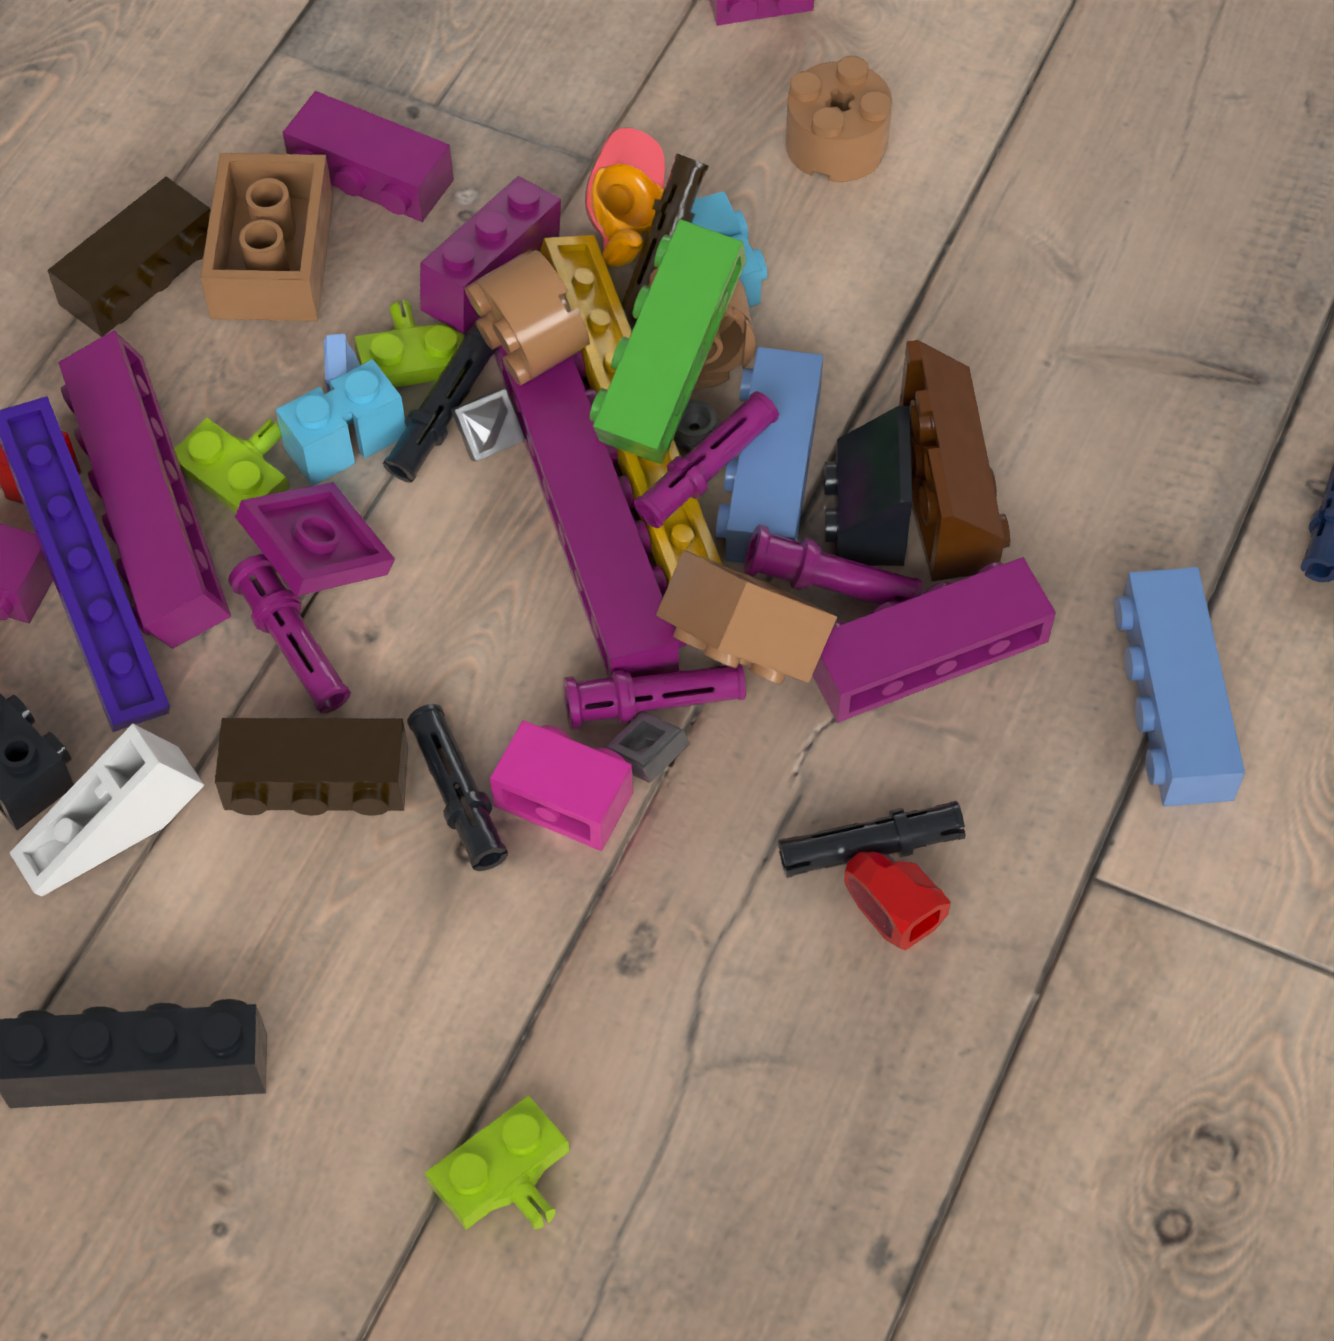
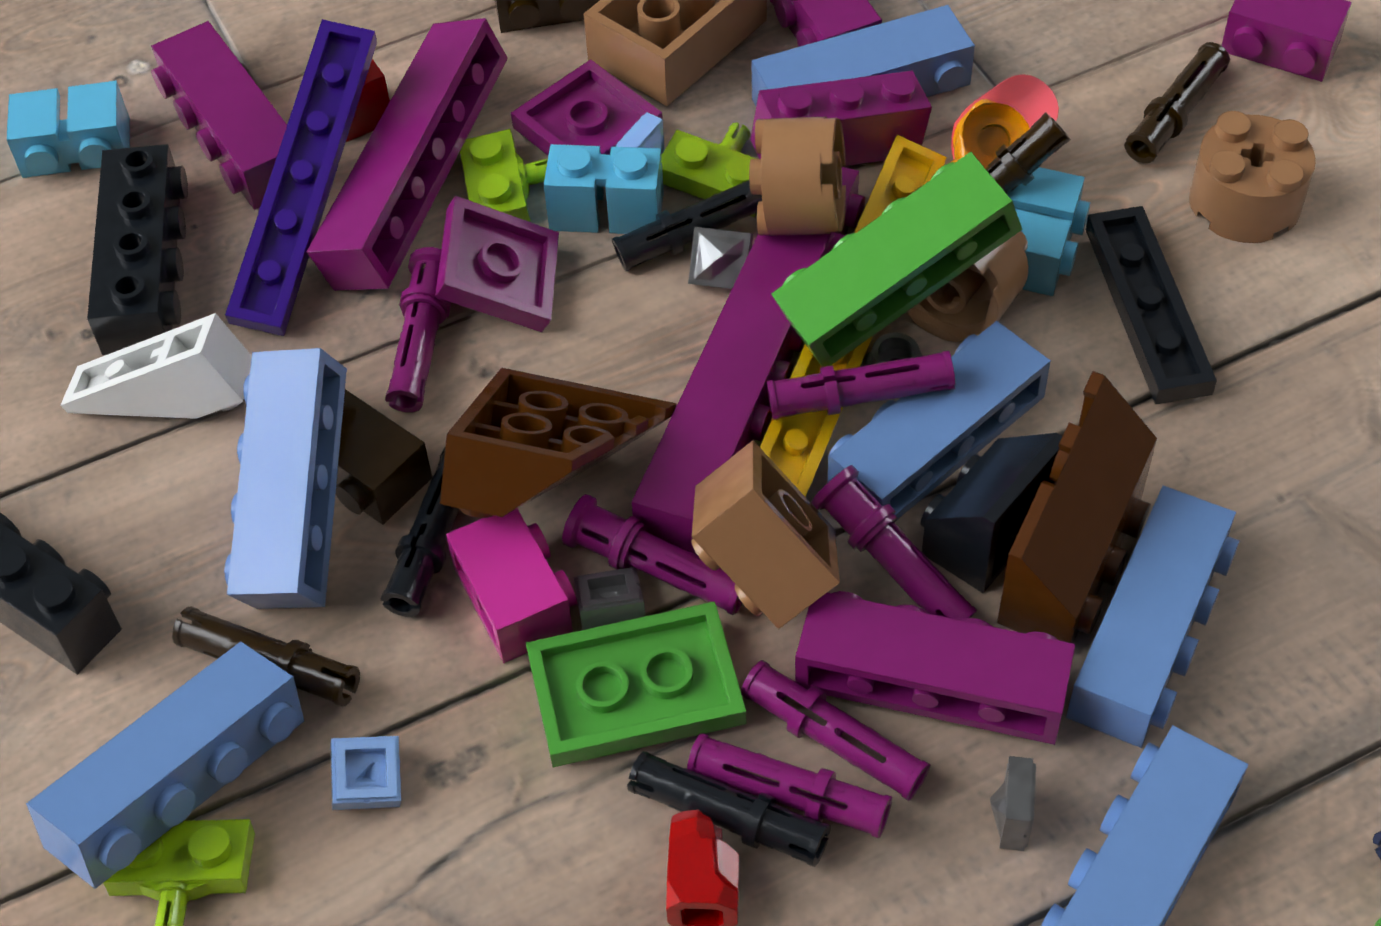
camera: 40 degrees right, 5 degrees down
(260, 368) = (581, 109): none -> magenta plate
(323, 817) = (286, 480): none -> brick
(418, 969) = (310, 670): none -> dark brown pin
(439, 1097) = (166, 764): none -> medium blue brick
(467, 178) = (924, 42): none -> medium blue brick
(504, 655) = (533, 436): none -> reddish brown wedge
(583, 1000) = (365, 772): none -> light blue tile
(723, 797) = (635, 684): none -> bright green plate
(725, 53) = (1168, 115): none -> dark brown pin
(843, 267) = (1150, 306): none -> black plate
(965, 729) = (770, 688): none -> magenta pin
(965, 776) = (864, 808): none -> magenta pin
(1044, 501) = (1150, 618): none -> medium blue brick
(1064, 698) = (1015, 803): none -> flat silver tile

